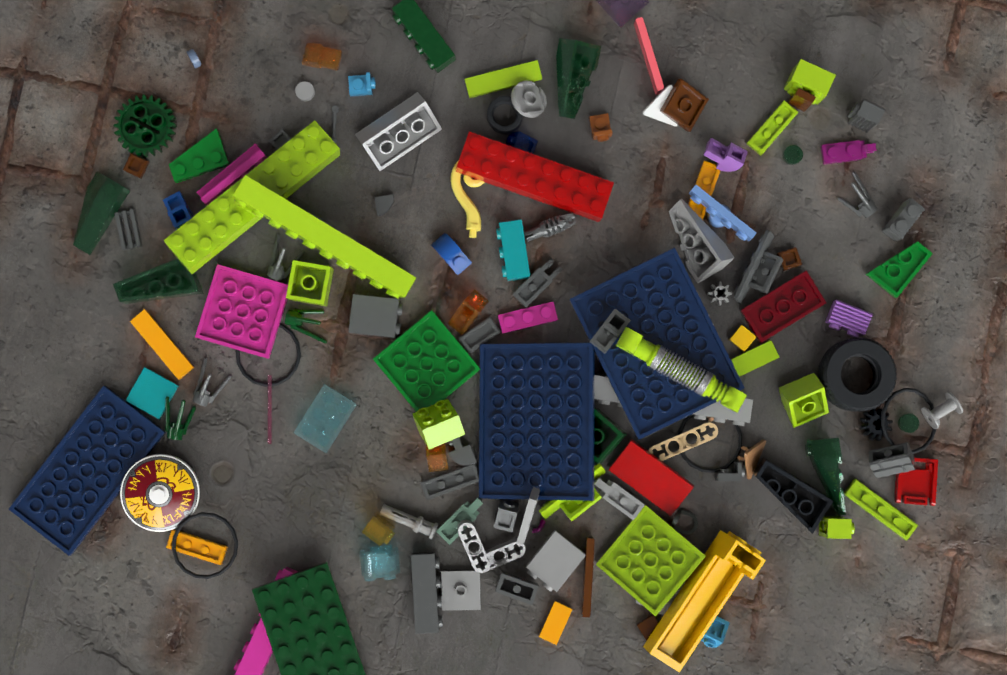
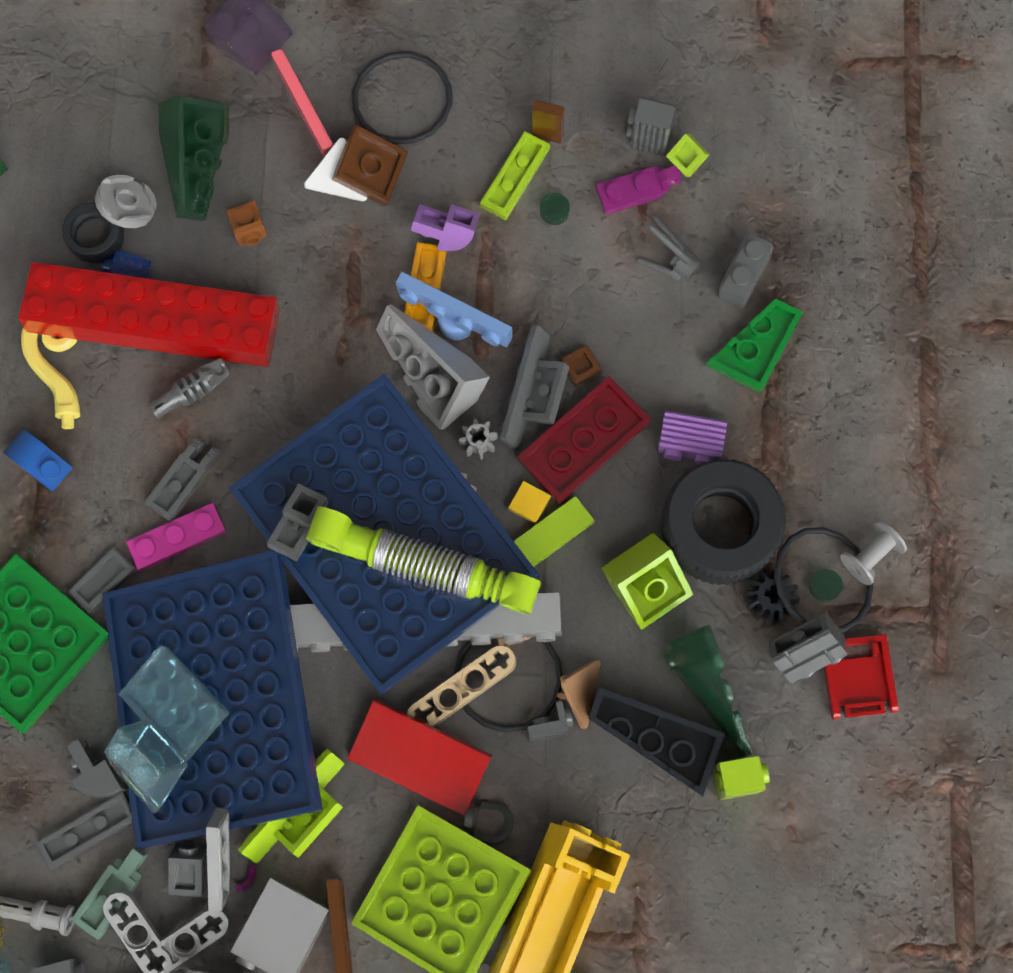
camera: 10 degrees left, 10 degrees down
(437, 458) = (52, 781): clear orange slope -> none
(438, 423) = (44, 734): lime brick -> none
(468, 312) = (76, 545): clear orange slope -> none
(495, 452) = (145, 762): none -> clear light blue slope
(502, 79) = (81, 182): lime tile -> none
(513, 250) = (135, 435): teal brick -> none
(516, 420) = (174, 702): none -> clear light blue plate
(606, 435) = (328, 702): dark green brick -> none
(619, 498) = (373, 802): light grey hinge -> none
(716, 33) = (435, 127): none -> black piece
(810, 79) = (557, 85): lime brick -> none
(880, 509) = (811, 736): lime tile -> none
(883, 138) = (687, 155): none -> lime tile

